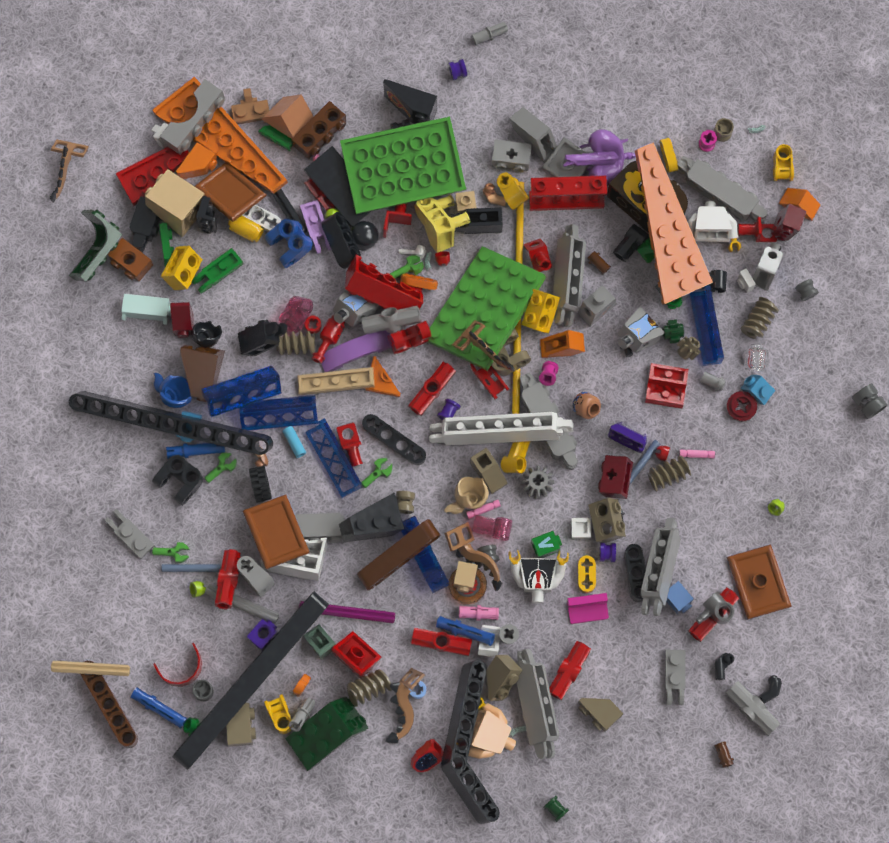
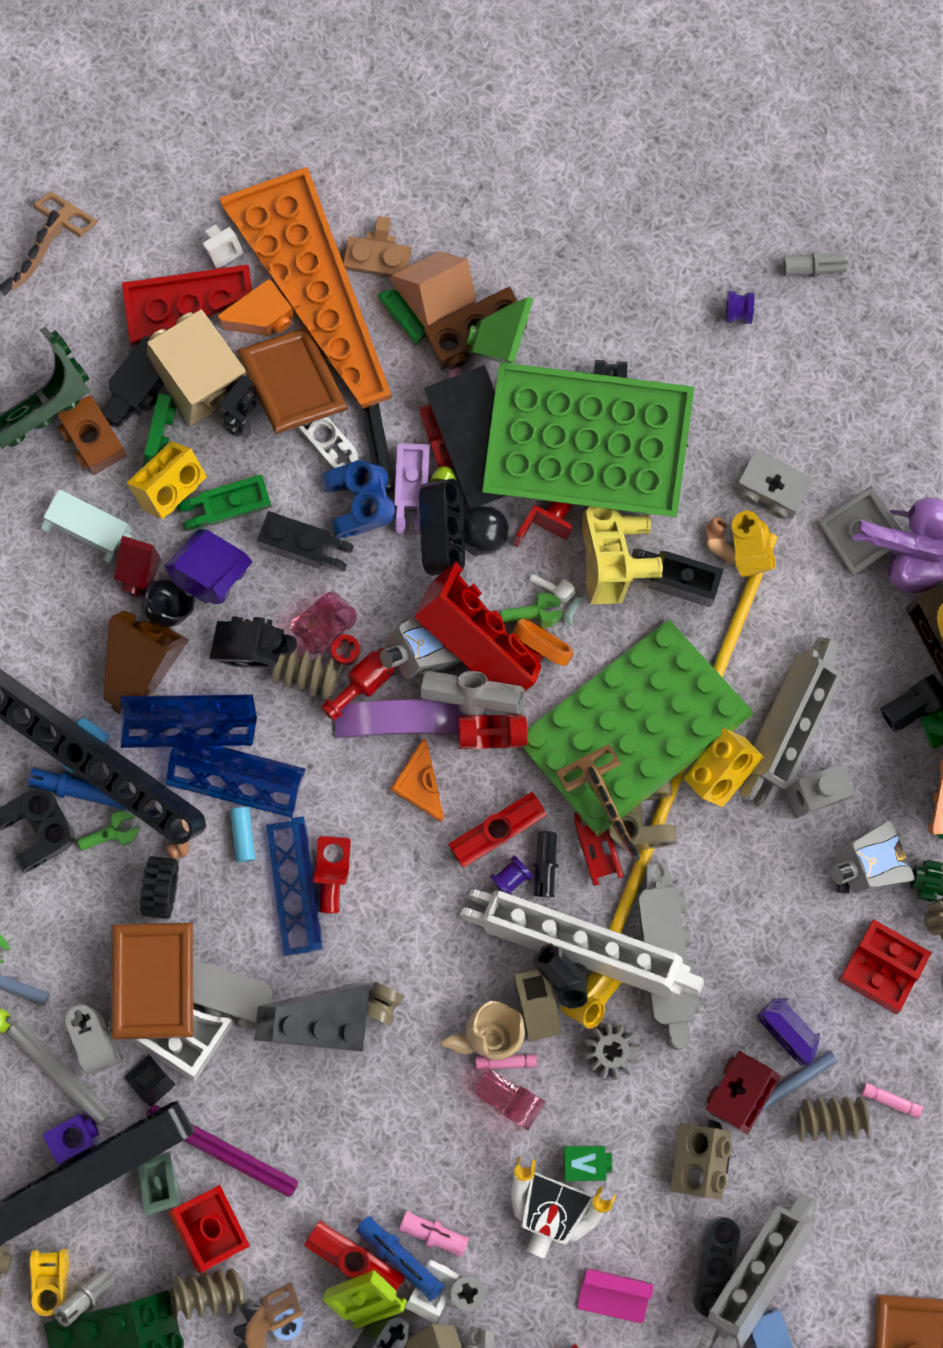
camera: 20 degrees right, 5 degrees up
(173, 390) = (77, 678): blue hair -> none
(179, 135) = (248, 257): light grey arch -> none
(221, 307) = (207, 567): none -> dark purple slope
(227, 579) = (47, 1027): red piece -> none
(246, 228) = (298, 451): yellow head -> none
(267, 275) = (301, 542): none -> black hinge
(293, 590) = (149, 1081): none -> black slope
(301, 685) = (103, 1246): orange tile -> none
(335, 125) = (500, 333): none -> bright green slope
(336, 381) = (347, 758): tan tile -> none
(378, 472) = (357, 936): bright green bar -> none
(395, 438) = (401, 893): black beam -> none
(398, 554) = (337, 1093): reddish brown beam -> none
(411, 102) = (647, 343): black slope -> none
(427, 561) = (380, 1105): clear blue slope -> none
(442, 257) = (597, 615): red hinge -> none
(454, 657) = (364, 1300): none -> lime plate
(465, 201) = (668, 536): tan brick -> none
(465, 398) = (545, 864): none -> black axle
(465, 576) = (432, 1169): tan brick -> none
(471, 555) = (457, 1136): medium nougat piece -> none
(471, 597) = (433, 1179): clear orange tile -> none
(491, 551) = (485, 1143): dark grey wheel -> none
(498, 448) = (565, 976): none -> black piece
(534, 132) = (824, 461): light grey slope -> none
(538, 255) = (755, 670): red bracket -> none
(548, 374) = (695, 879): dark pink bush -> none
(562, 344) = (738, 835): orange slope -> none
(567, 193) = (842, 584): red fence -> none
(581, 528) = (653, 1156): white plate -> none
(586, 405) = (739, 953): nougat head -> none
(592, 574) = (642, 1239): yellow beam -> none
(598, 262) = (850, 717): reddish brown pin -> none
(607, 552) = (682, 1213): dark purple wheel -> none
(663, 454) = (838, 1080): red hinge -> none

